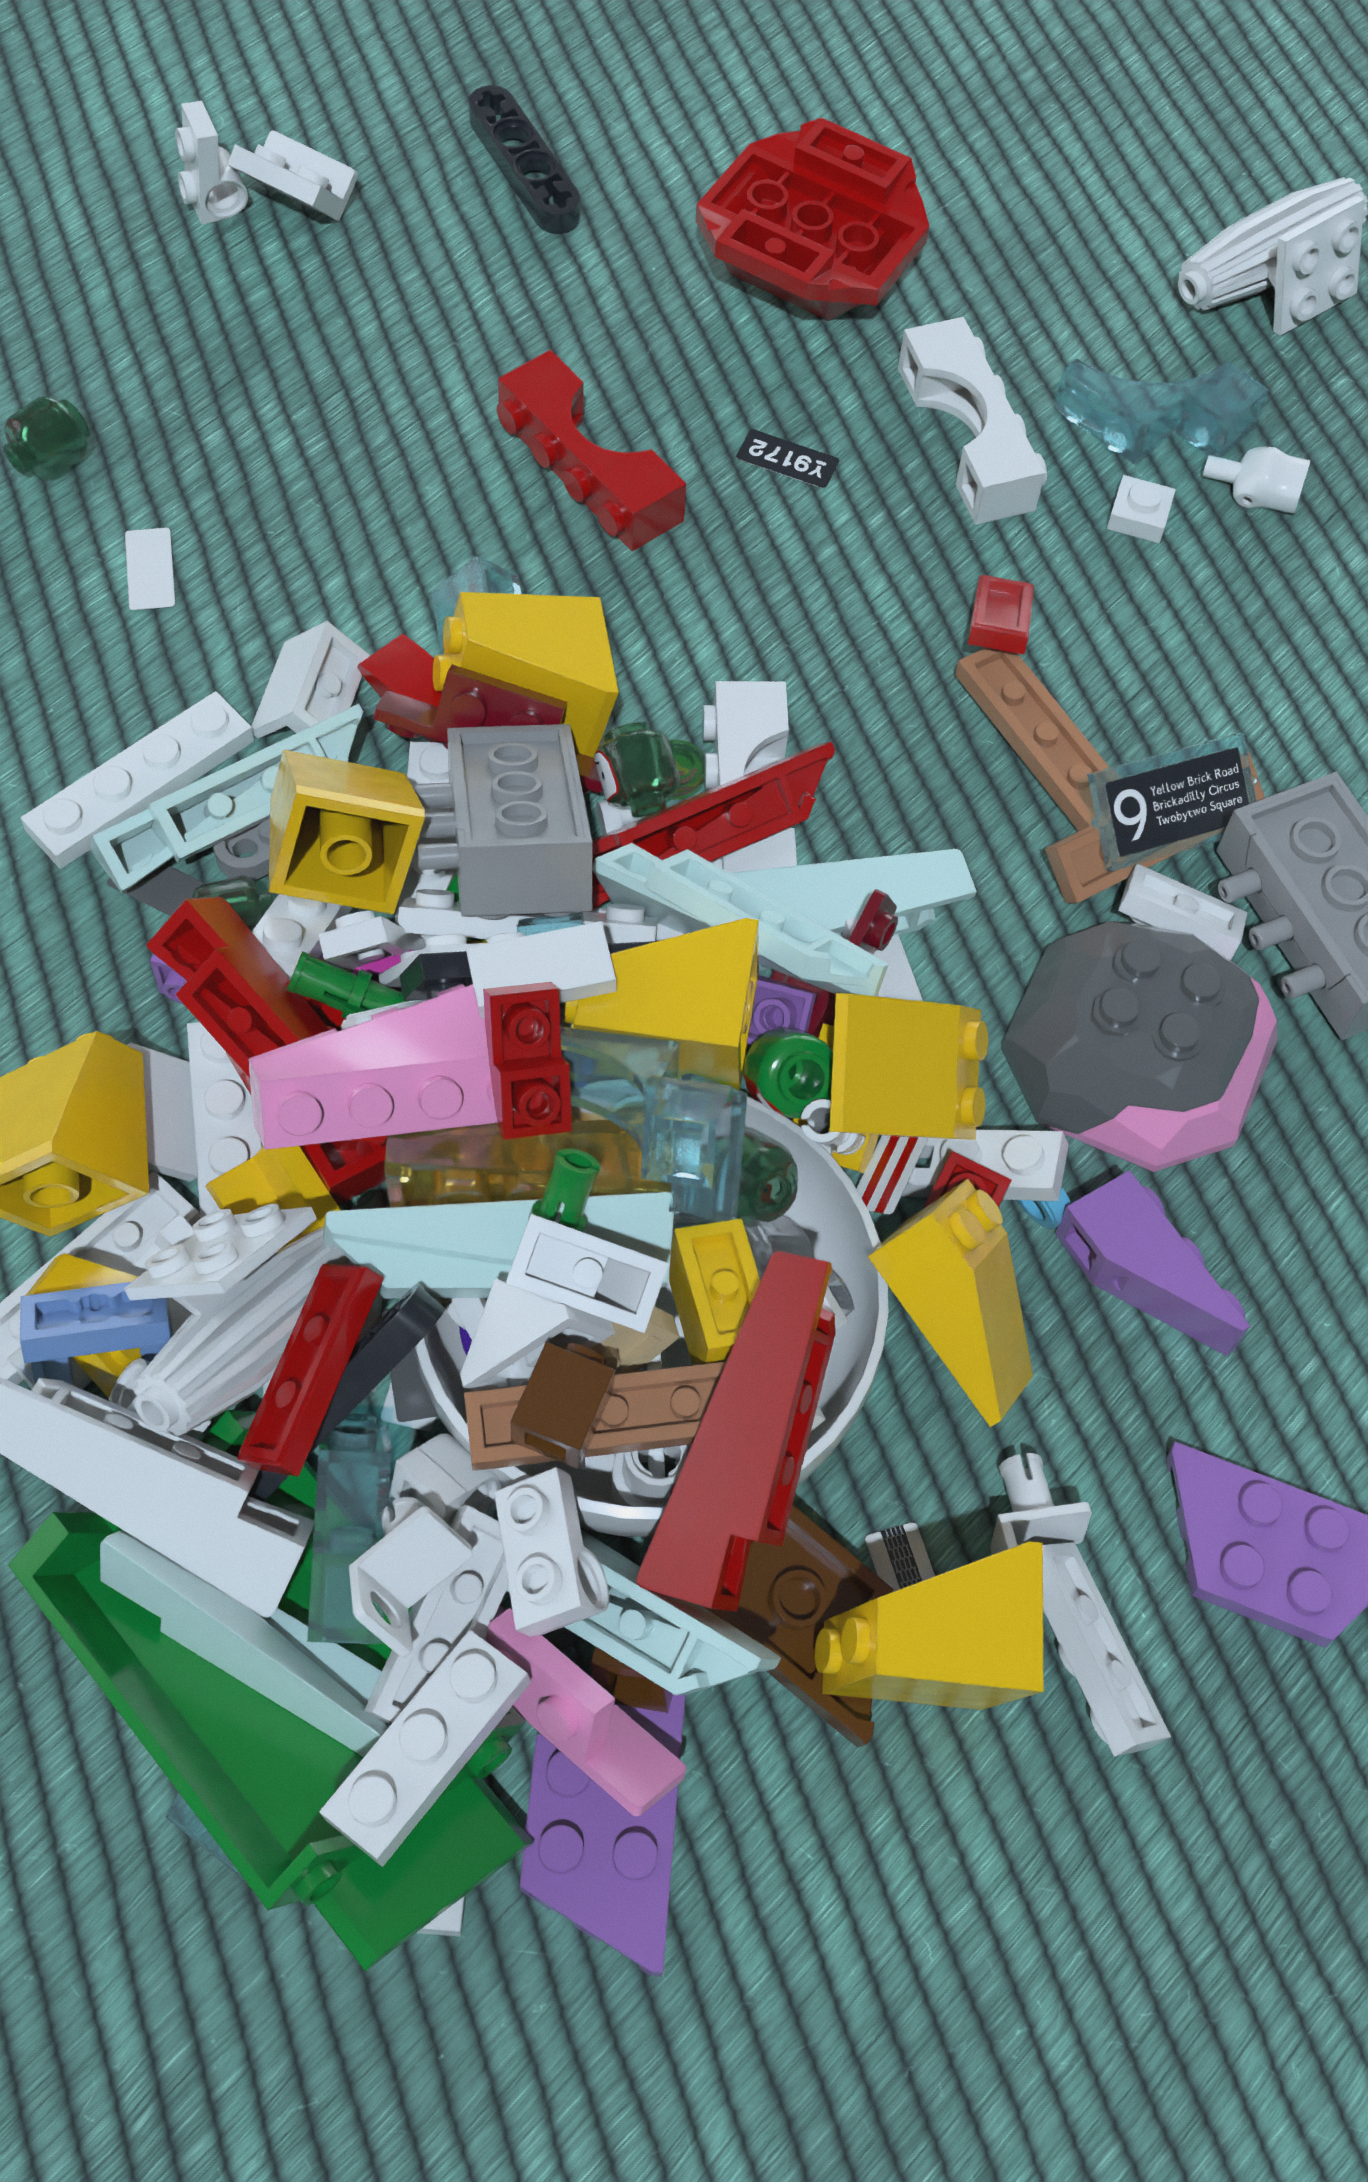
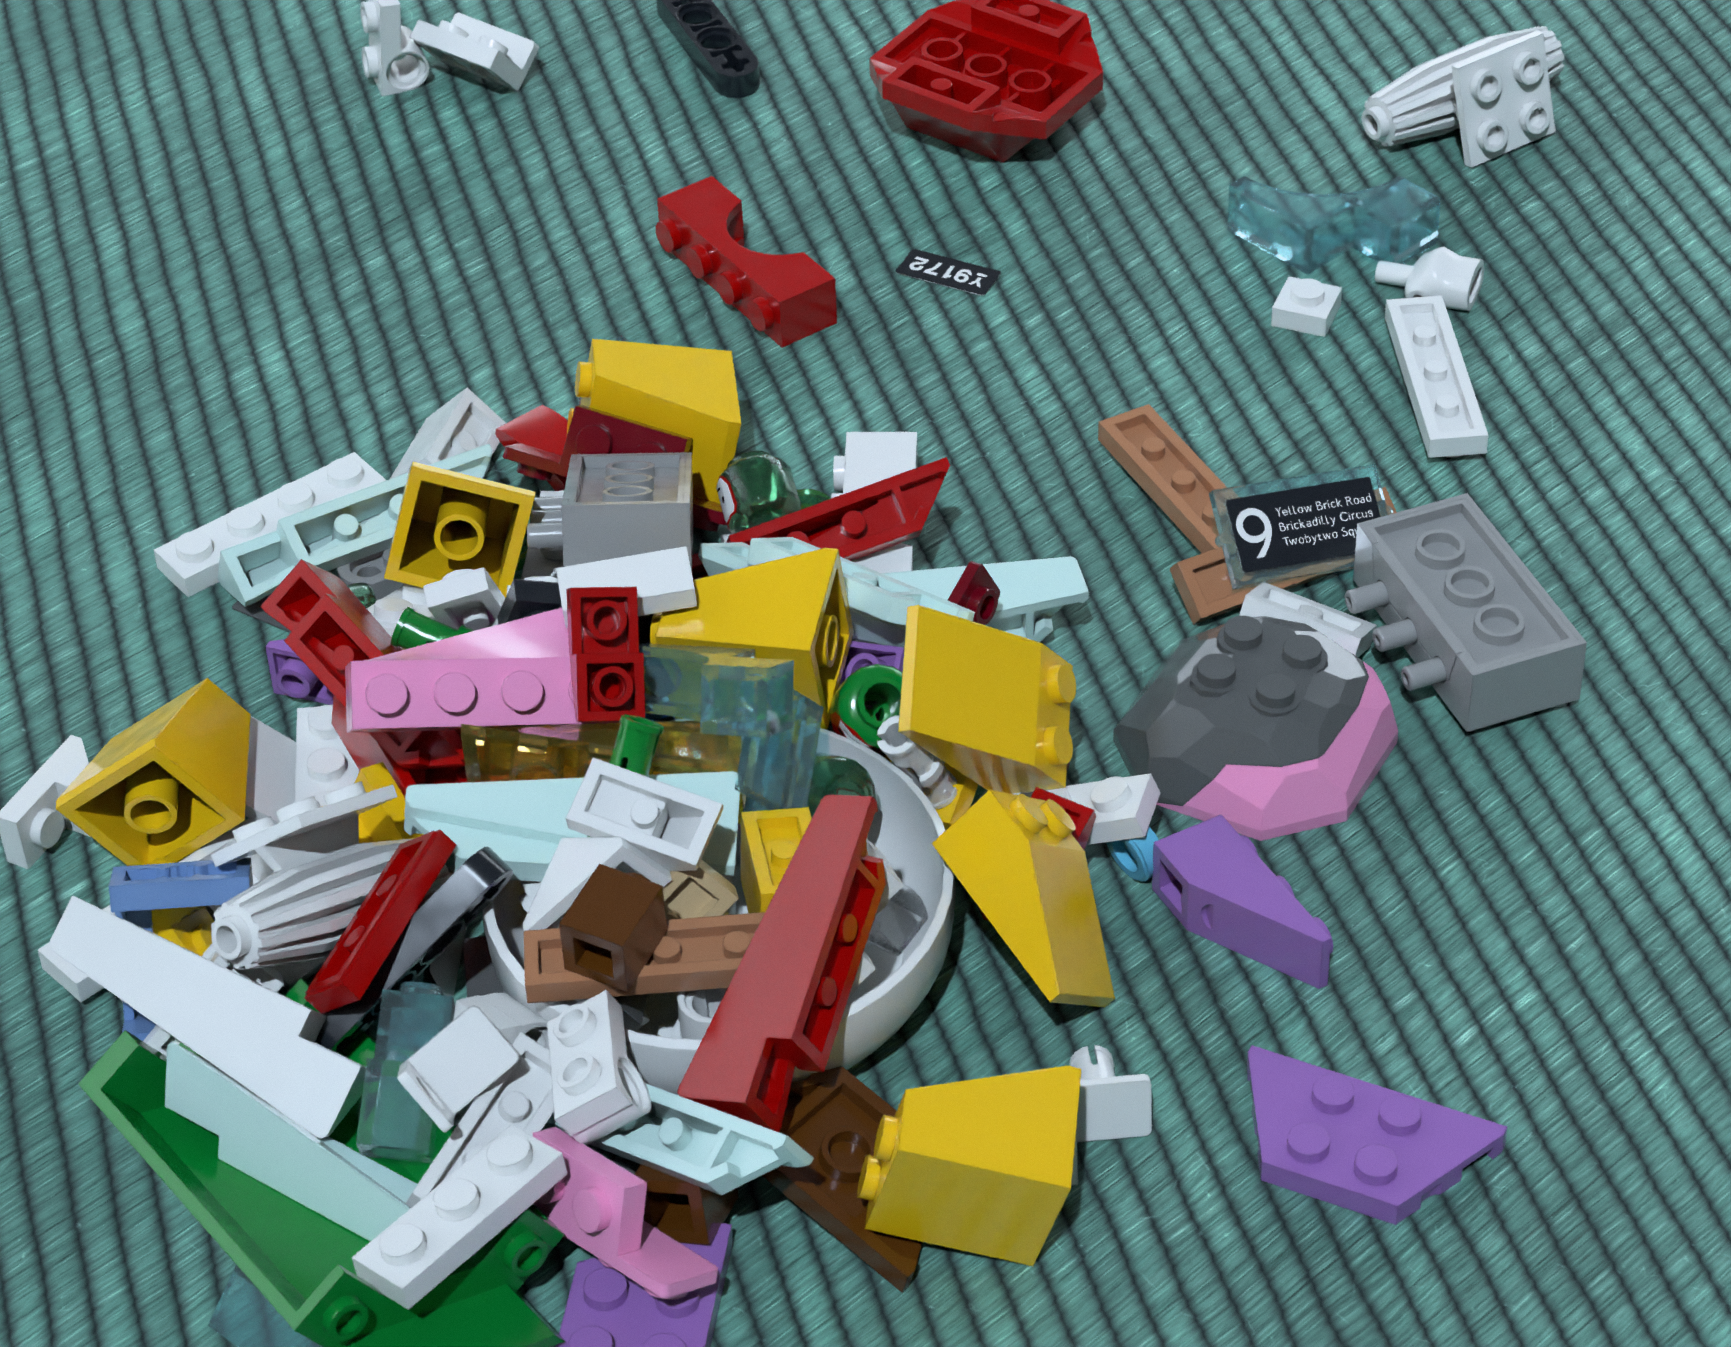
camera: 10 degrees right, 20 degrees down
(46, 437) = (211, 257): clear green head -> none
(149, 569) = (301, 363): white sticker -> none
(950, 373) = (1157, 266): white arch -> none
(1001, 614) = (1147, 385): red tile -> none
(1097, 1654) = (1147, 1205): white plate -> none
(1275, 602) = (1436, 377): none -> white plate

